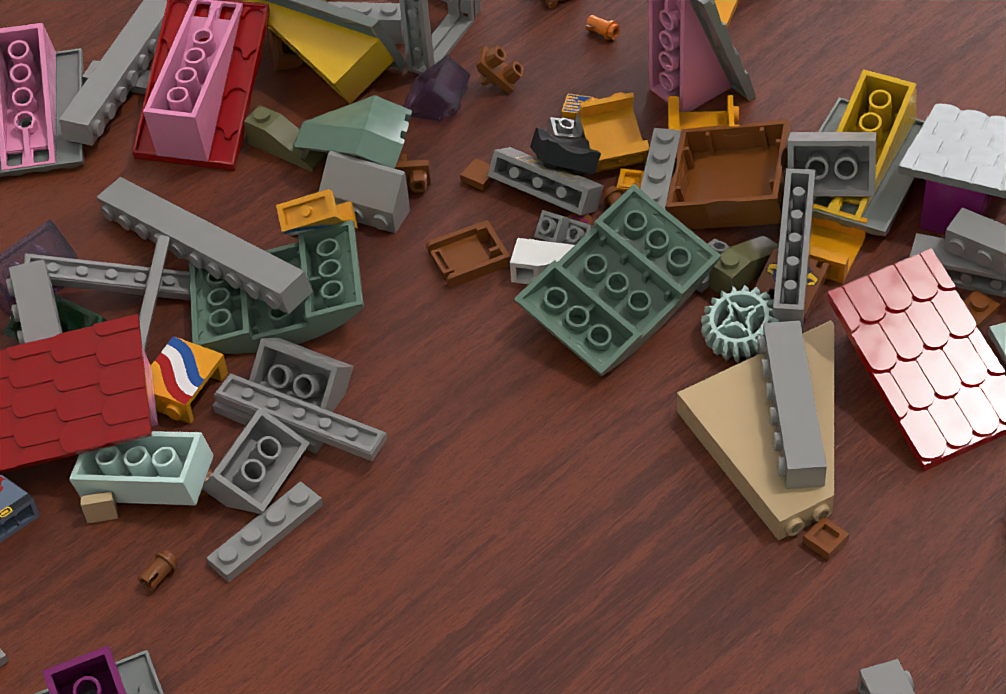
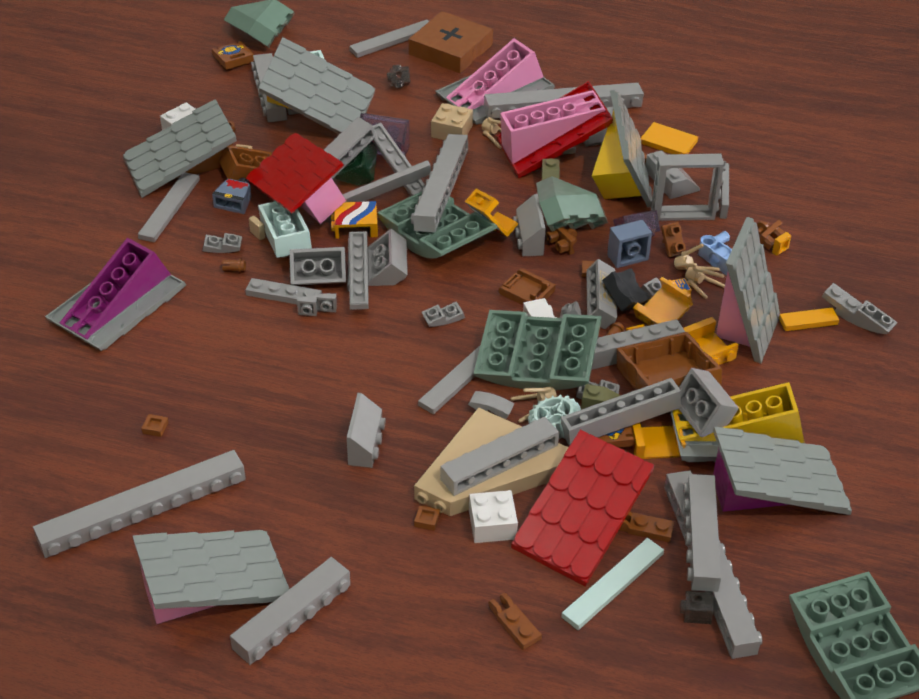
camera: 55 degrees right, 5 degrees down
(67, 186) = (451, 120): none -> tan brick
(96, 565) = (228, 244): none -> light grey slope
(110, 149) = (490, 127): none -> tan plant
(326, 503) = (312, 304): none -> light grey slope
(453, 362) = (441, 316): none -> light grey slope
(476, 111) = (629, 243): none -> sand blue brick
(543, 78) = (685, 261): none -> tan plant
(555, 41) = (715, 250): none -> light blue piece
(571, 79) = (695, 275): none -> tan plant
(587, 399) = (450, 384): none -> light grey tile
(638, 543) = (364, 432): none -> light grey slope
(664, 380) = (494, 403): none -> light grey slope
(687, 321) = (546, 392): none -> tan plant
(873, 463) = (493, 516): none -> white brick

